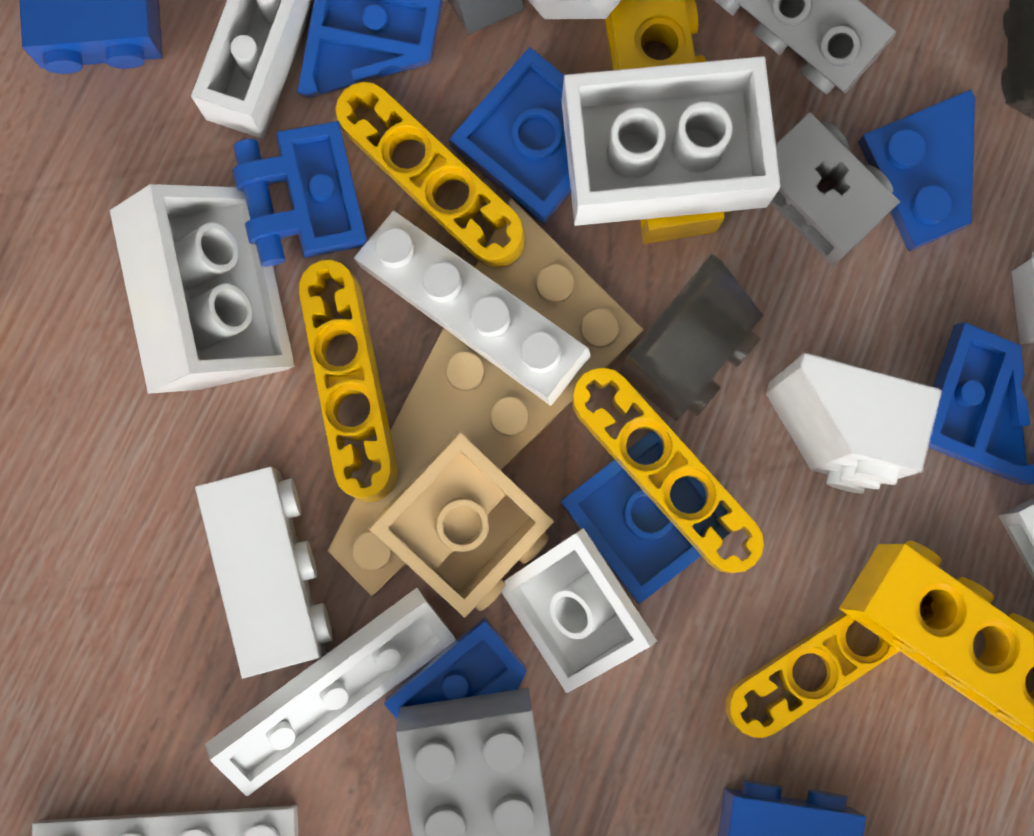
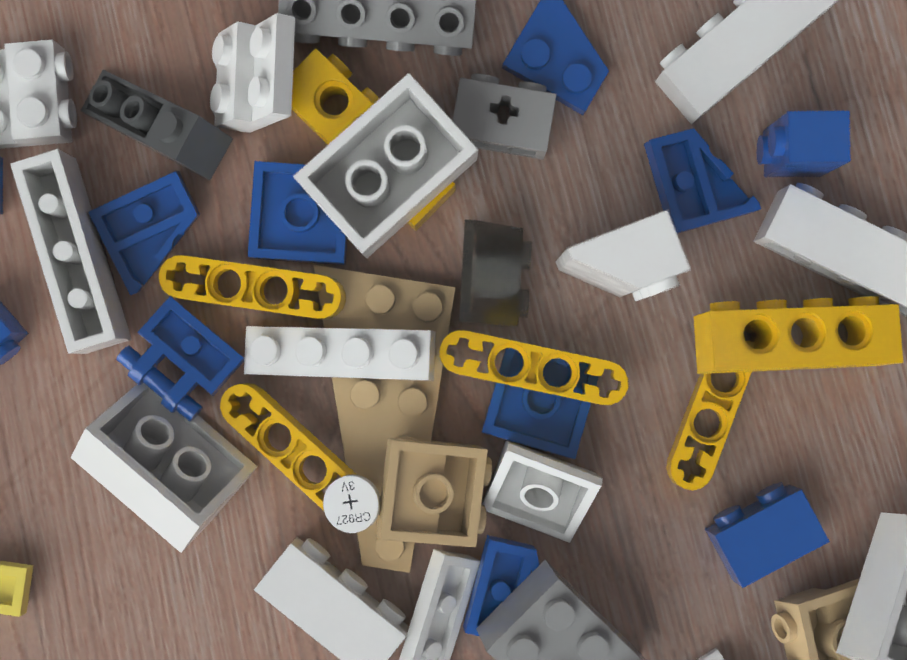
camera: 25 degrees left, 5 degrees up
(367, 471) = (352, 503): none -> white piece

